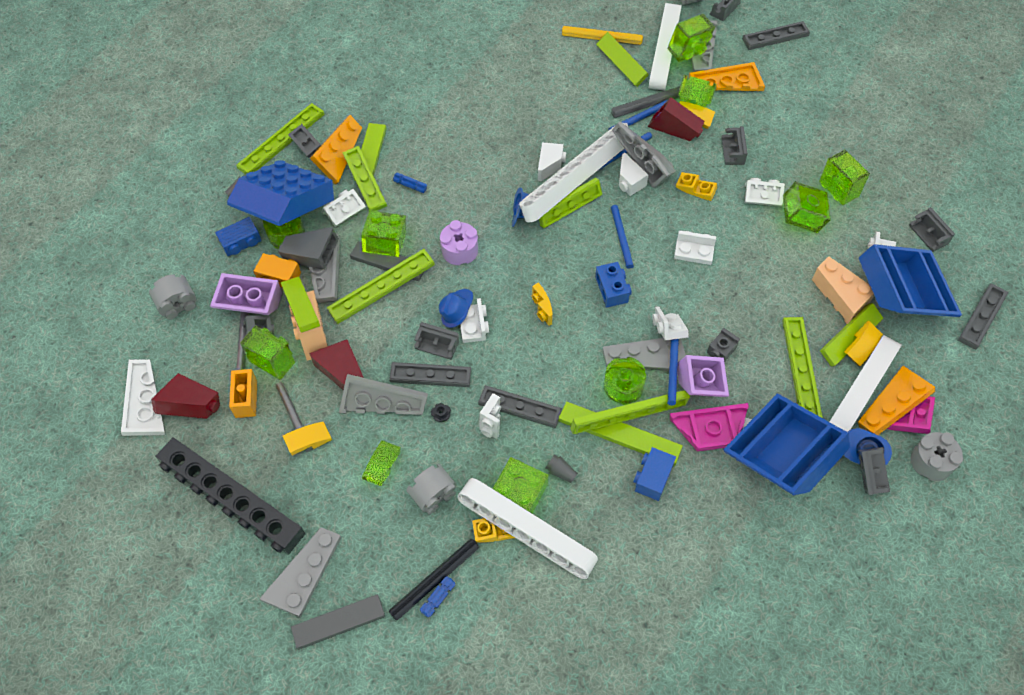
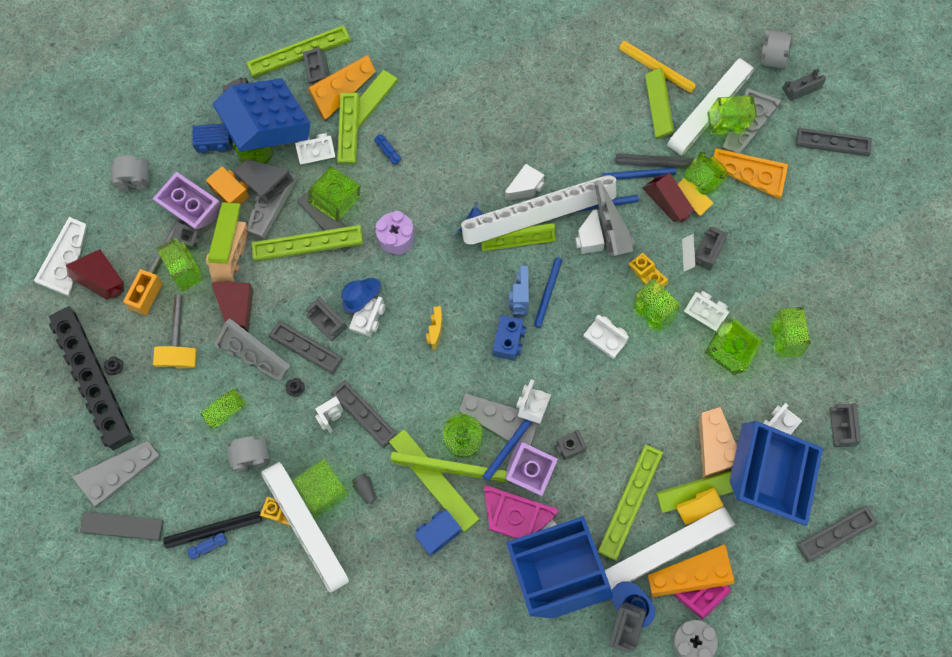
camera: 30 degrees right, 10 degrees up
(246, 480) = (116, 369): none -> black plate
(604, 241) = (520, 295): none -> medium blue plate
(719, 156) = (688, 252): none -> white sticker
(723, 202) = (656, 305): none -> clear neon green brick

